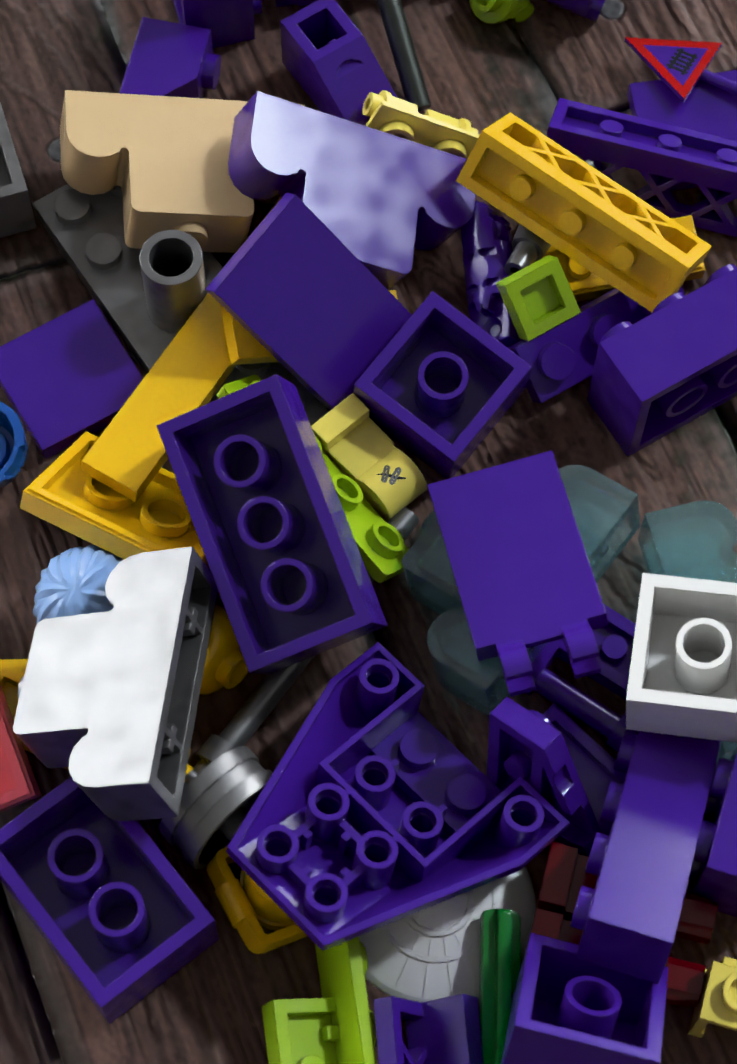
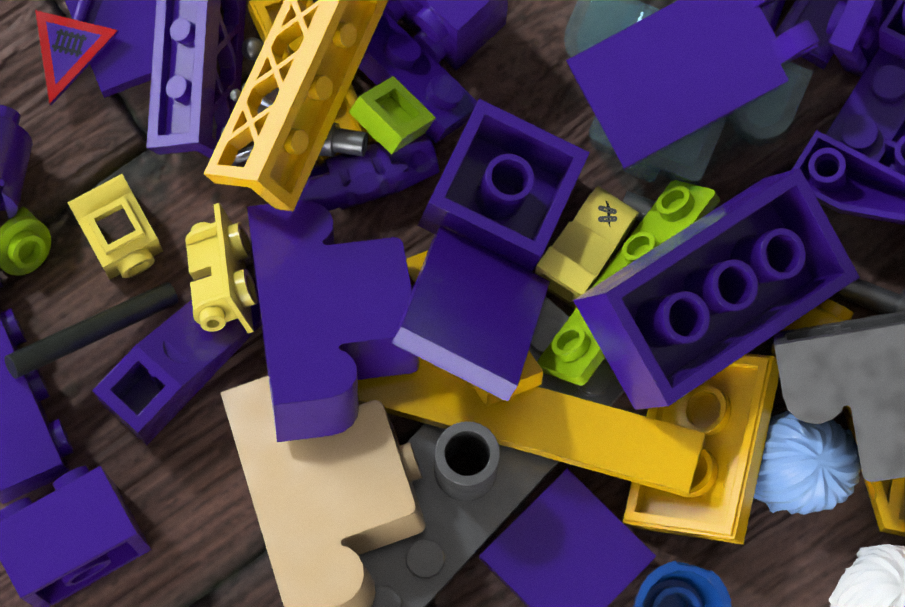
camera: 105 degrees left, 10 degrees up
(171, 61) = (202, 554): dark purple slope -> none
(490, 69) = (130, 253): none -> light yellow window

